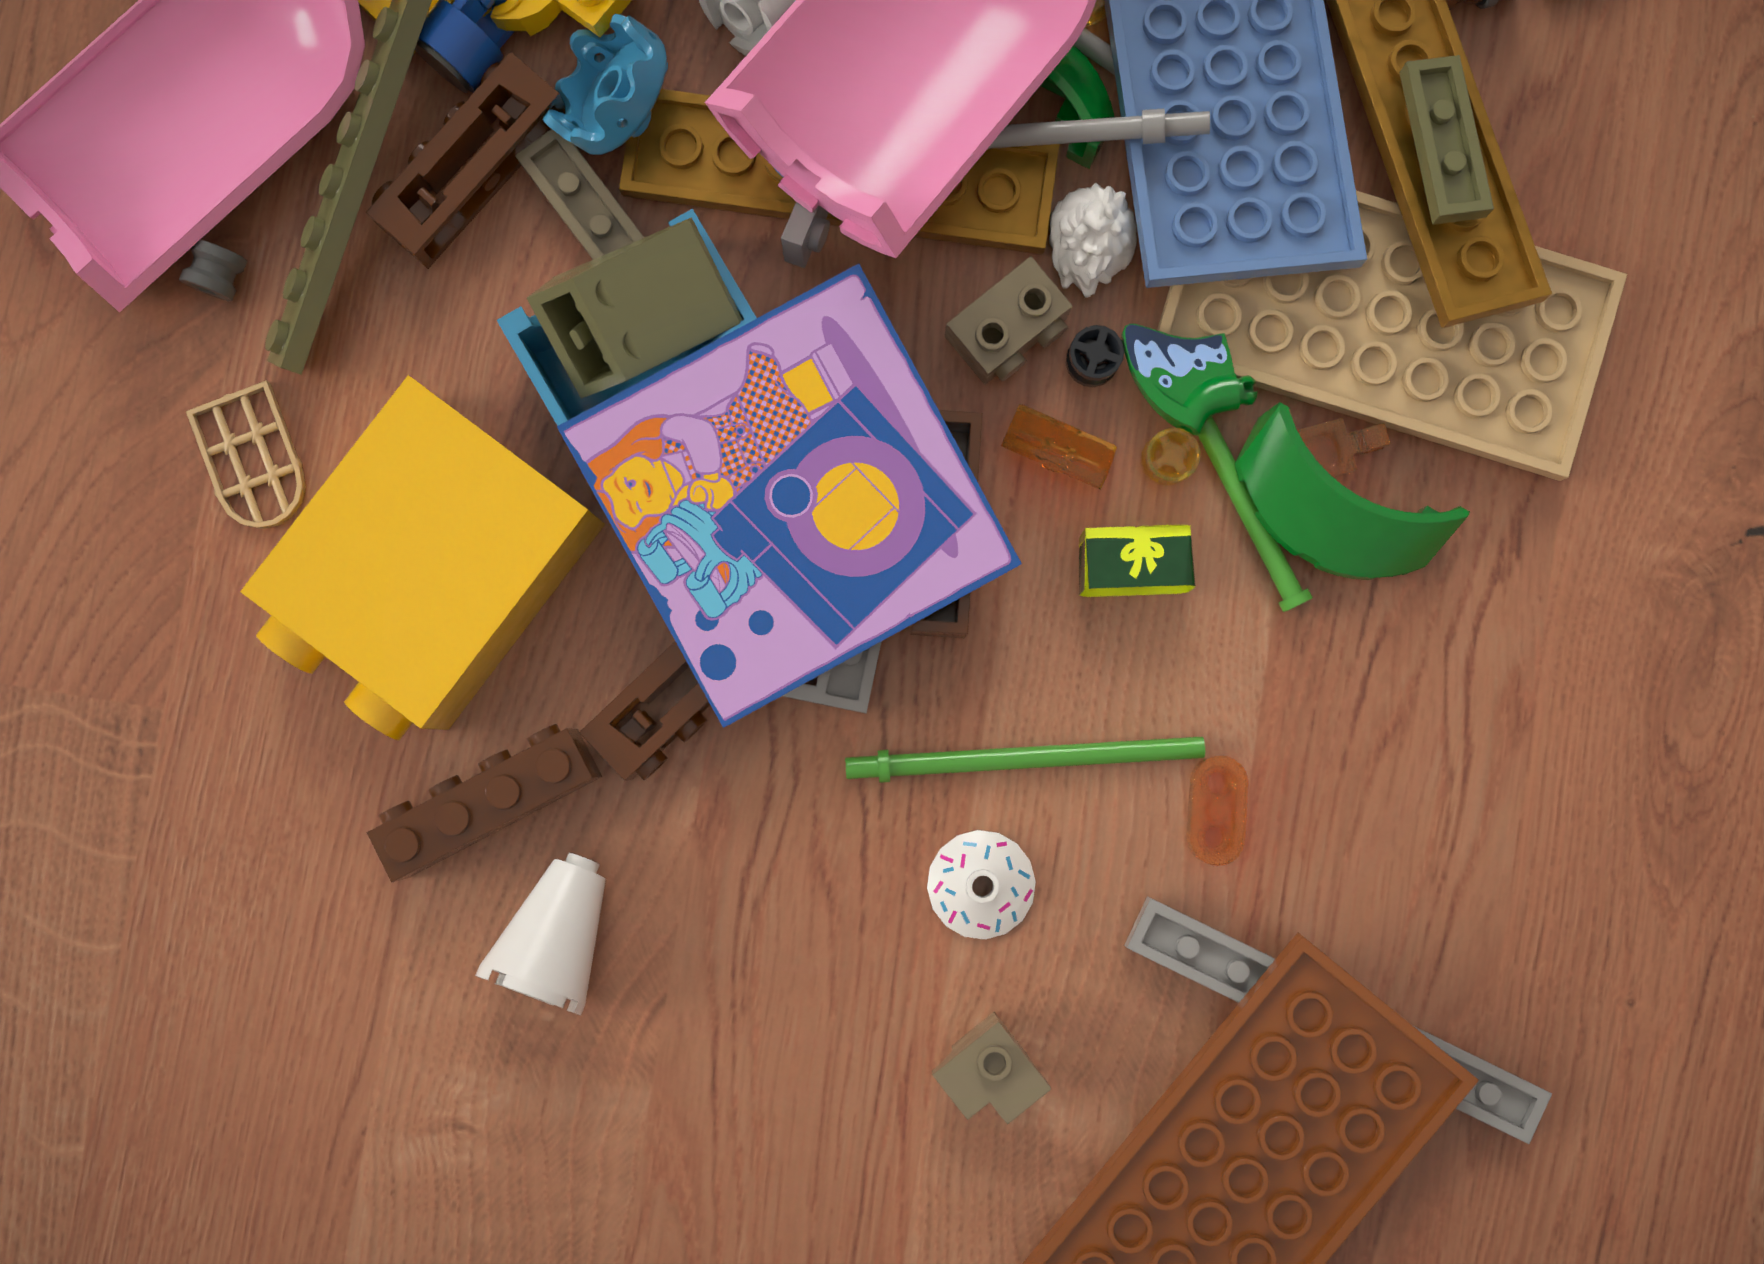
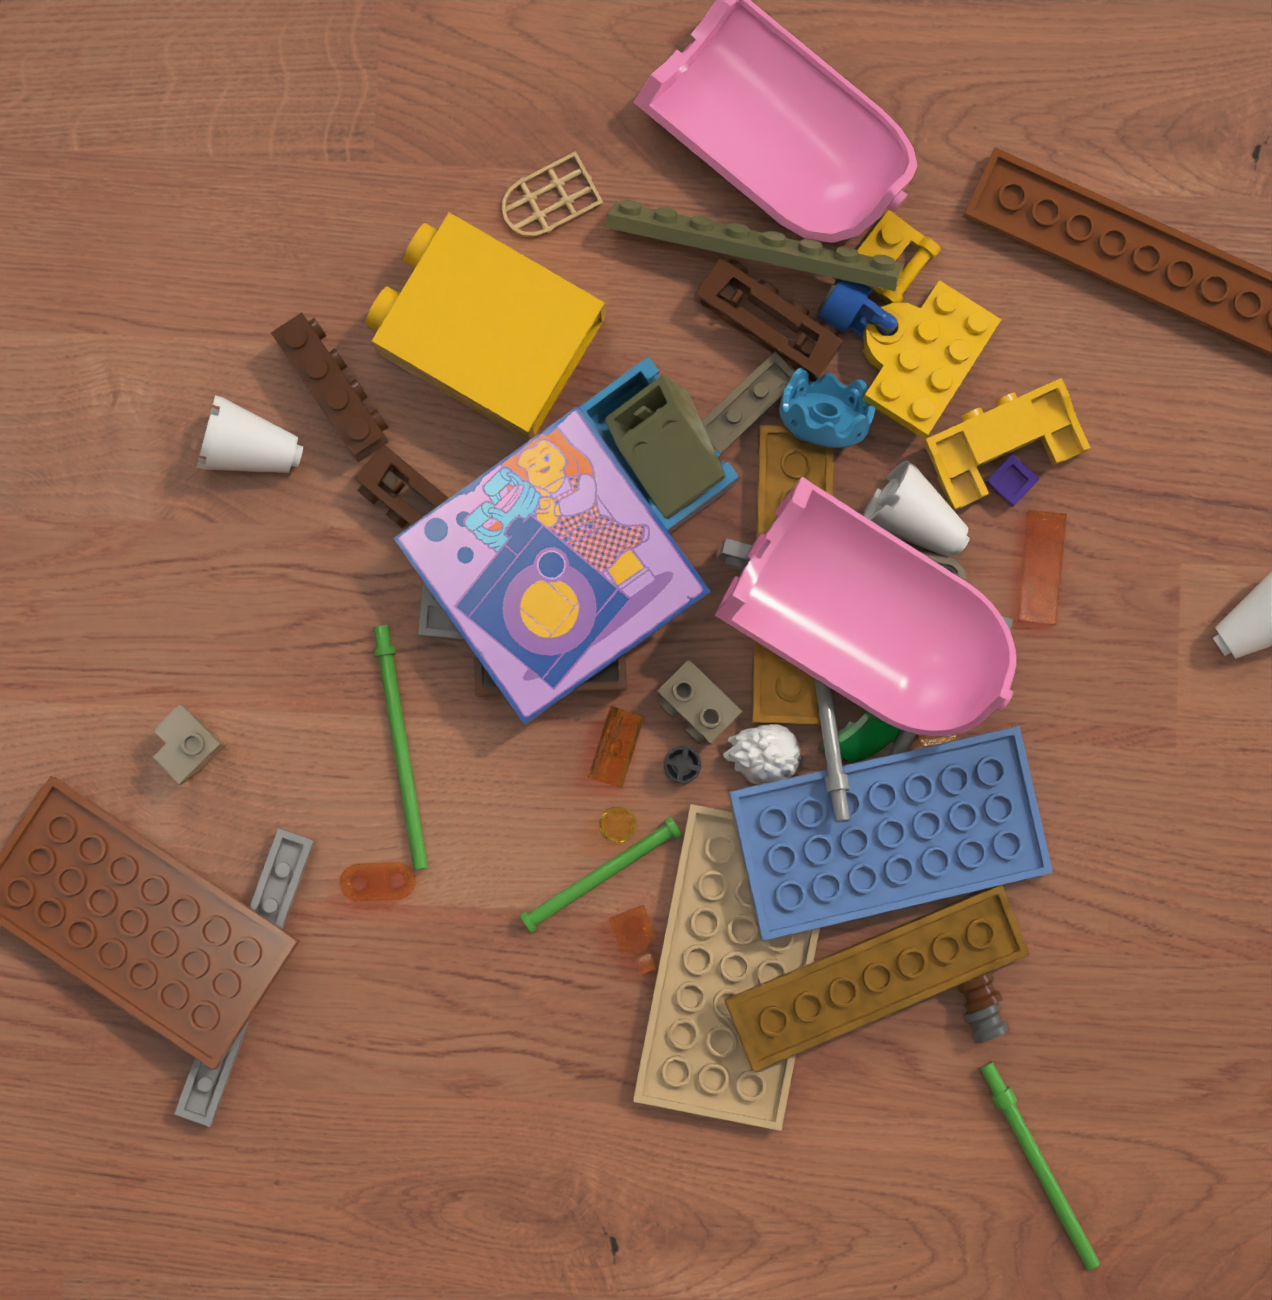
camera: 85 degrees right, 0 degrees up
(213, 270) = (672, 158): dark grey wheel -> none
(974, 856) = (330, 732): white dish -> none
(1136, 561) = (542, 806): piece -> none
(1185, 376) = (672, 827): green arm -> none
(1324, 519) = (580, 934): green windscreen -> none
(1446, 140) = (852, 986): olive plate -> none

